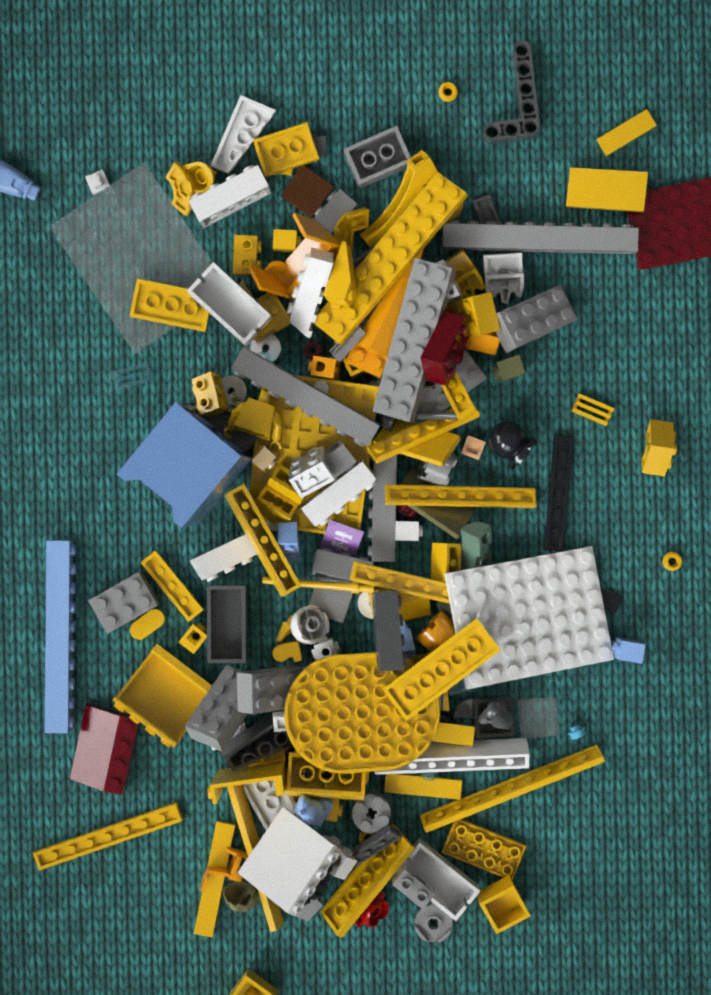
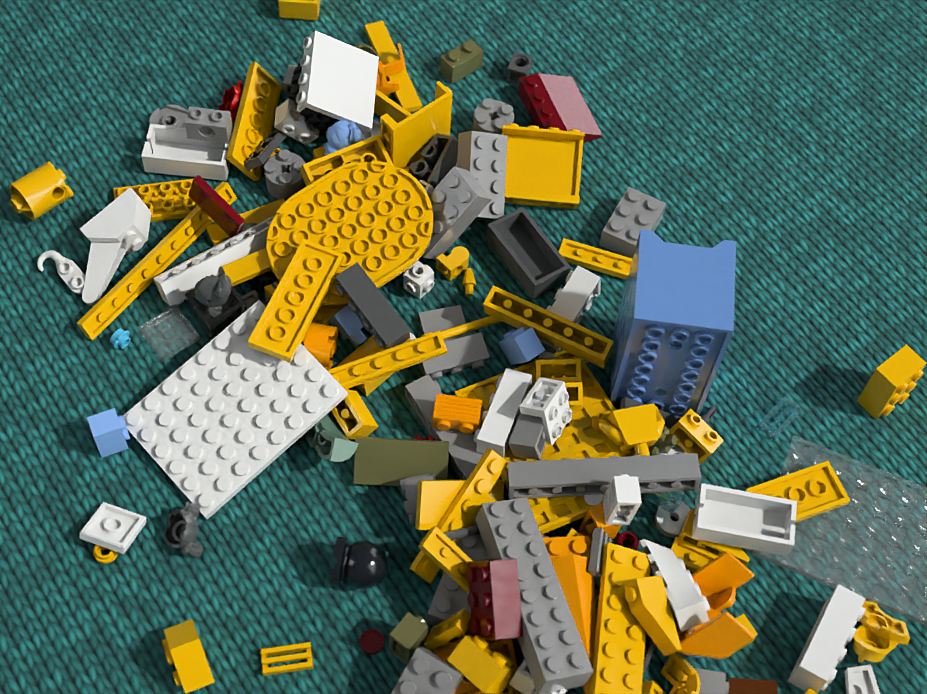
camera: 145 degrees right, 30 degrees down
(35, 342) = (892, 382): none -> yellow brick
(59, 636) = (668, 171): light blue brick -> none
(108, 836) = (500, 59): yellow tile -> none
(116, 805) = (519, 67): none -> dark grey brick
(147, 624) = (597, 220): yellow tile -> none
(155, 847) = (461, 61): none -> olive brick
(173, 776) = (491, 116): none -> light grey brick
(188, 640) = (551, 230): yellow brick -> none
(246, 254) = (764, 595): yellow brick -> none
(265, 458) = (599, 401): tan plate -> none
(309, 625) = (449, 289): white cylinder -> none
(311, 364) = (621, 500): none -> white brick
(341, 538) = (471, 381): medium lavender sticker -> none
(374, 512) = (456, 413): none -> light orange brick
(408, 530) = (410, 424): white brick -> none
(450, 800) = (215, 207): none -> dark red tile
(460, 496) = (377, 481): yellow tile -> none
(473, 447) = (395, 542): light nougat plate -> none
(481, 356) = (447, 630): none -> yellow plate
(503, 904) = (111, 160): yellow piece -> none
(529, 388) = (372, 641): none -> dark red piece
(543, 824) = (113, 233): none -> white slope
(558, 493) = (274, 553): black tile -> none
(574, 905) = (39, 191): none -> yellow cylinder
(610, 600) = (155, 477): black piece -> none
(613, 542) = (184, 530): none -> dark grey hair
(659, 574) = (113, 527): none -> white tile

